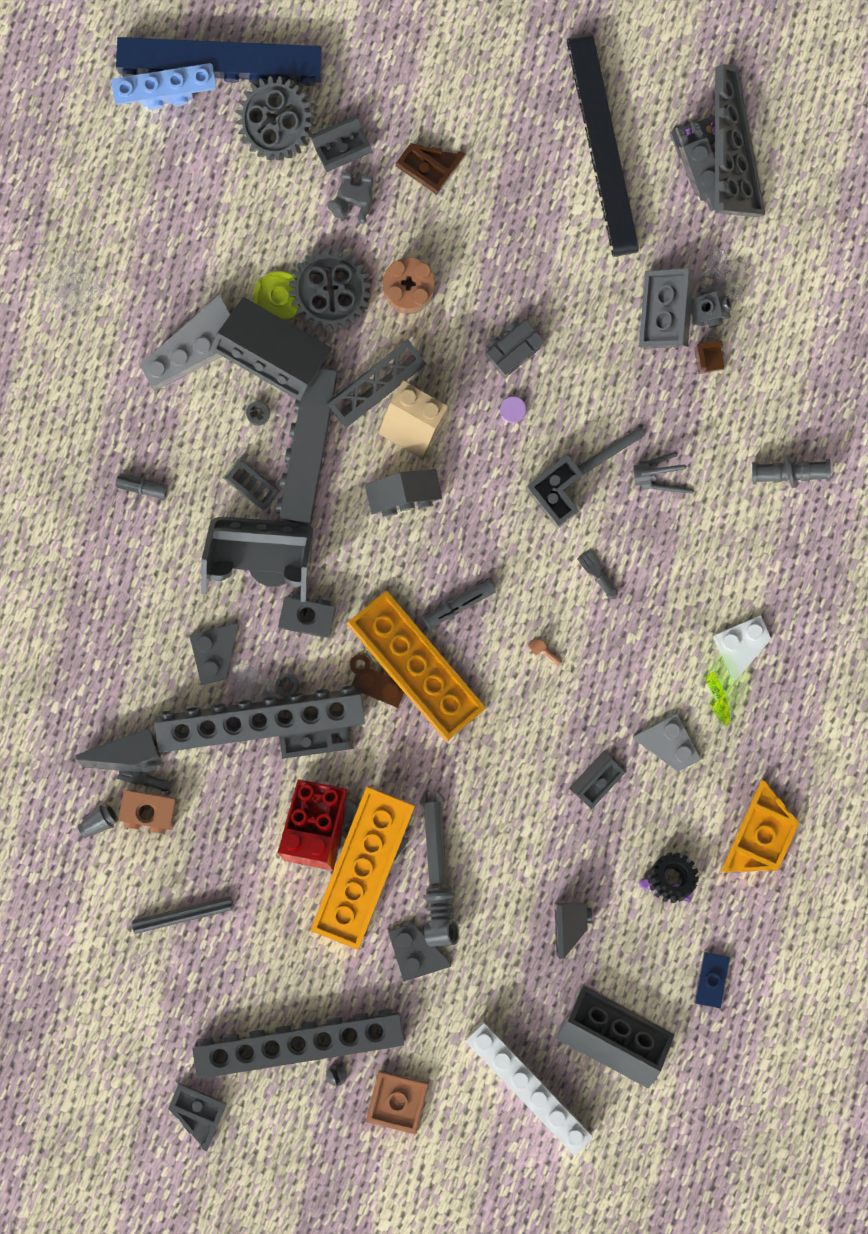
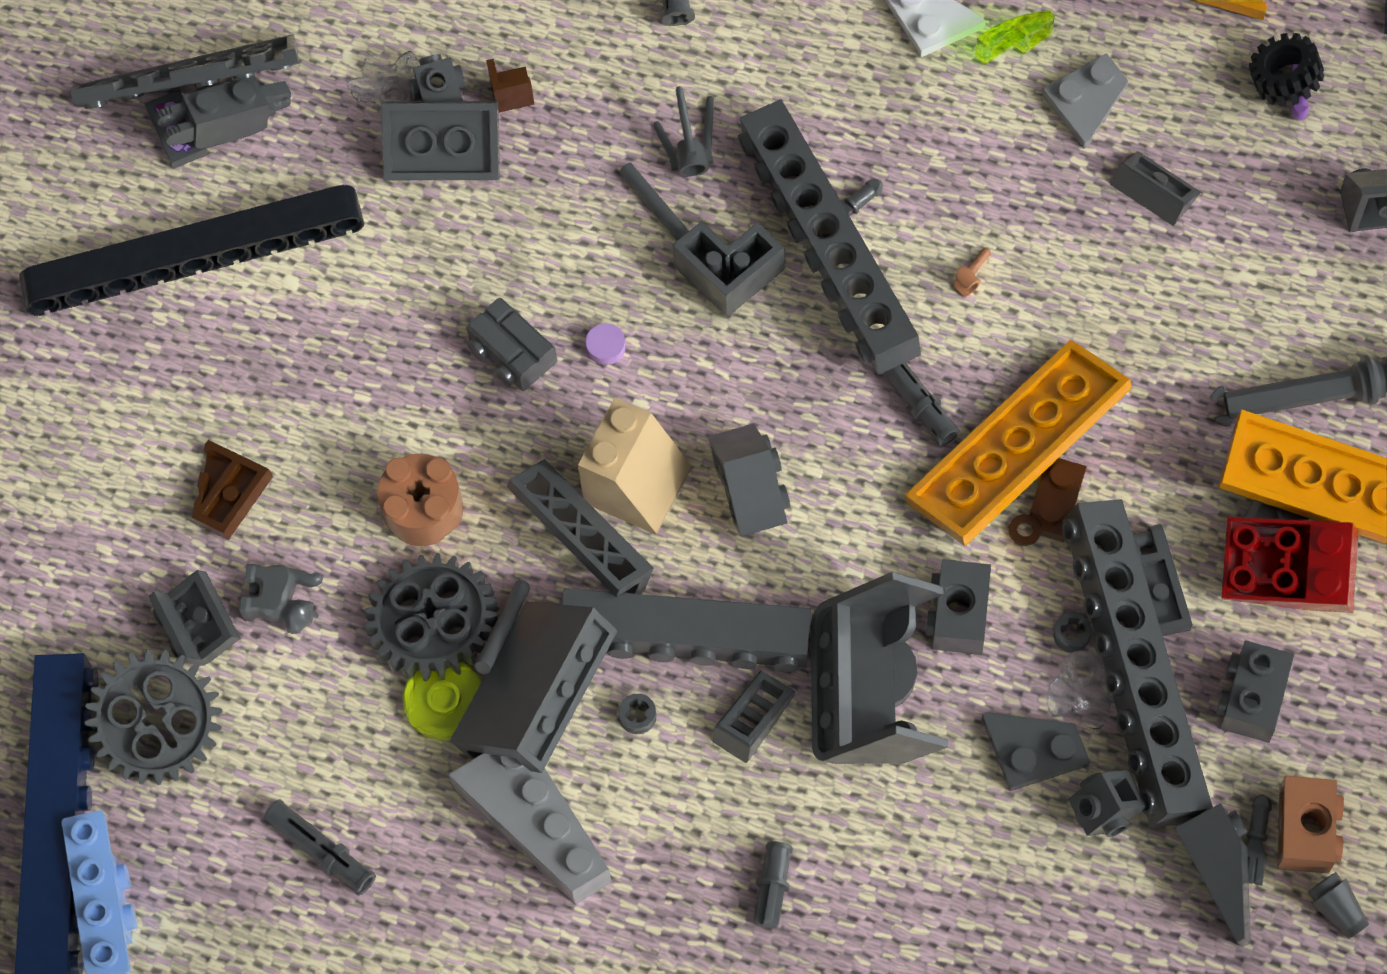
camera: 90 degrees left, 20 degrees down
(169, 690) = (1107, 803): none -> dark grey brick
(189, 218) = (332, 857): none -> dark grey pin
(235, 791) = (1255, 692): none -> dark grey brick
(316, 332) = (502, 627): none -> dark grey bar
(655, 519) = (883, 347): none -> dark grey brick

